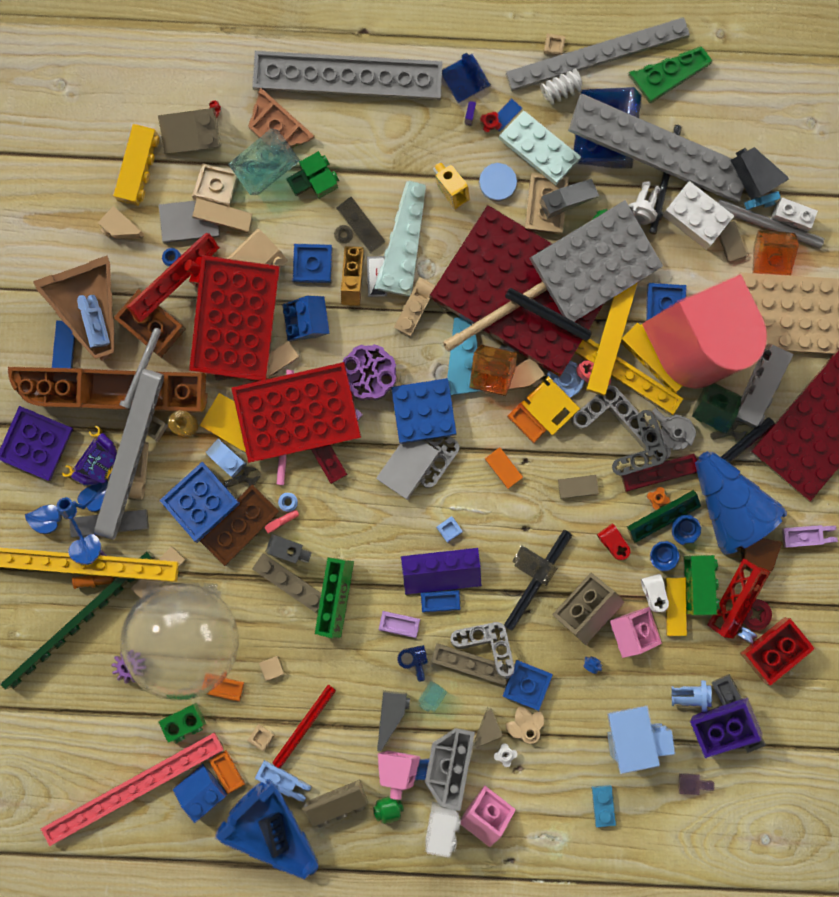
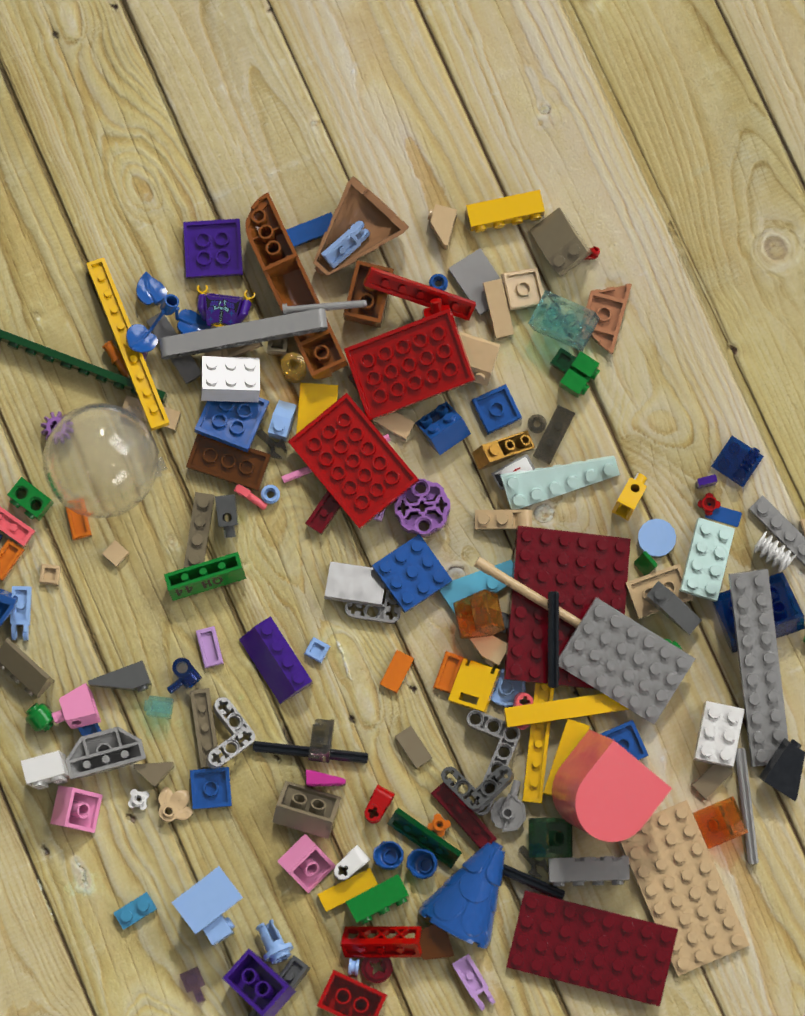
camera: 70 degrees right, 5 degrees down
(164, 486) = (230, 379): none -> white brick
(304, 726) = (78, 607): red axle -> none
(347, 75) = (684, 355): light grey plate -> none
(440, 601) = (248, 673): blue tile -> none
(516, 202) = (645, 563): none -> green slope
(566, 585) = (316, 778): none -> dark pink slope
(592, 664) = (257, 838): blue plate -> none
(643, 209) = (696, 681): white piece -> none
(661, 195) = (701, 697): black bar -> none
(767, 201) = (766, 793): dark azure plate -> none
(794, 214) = (765, 823): white brick -> none

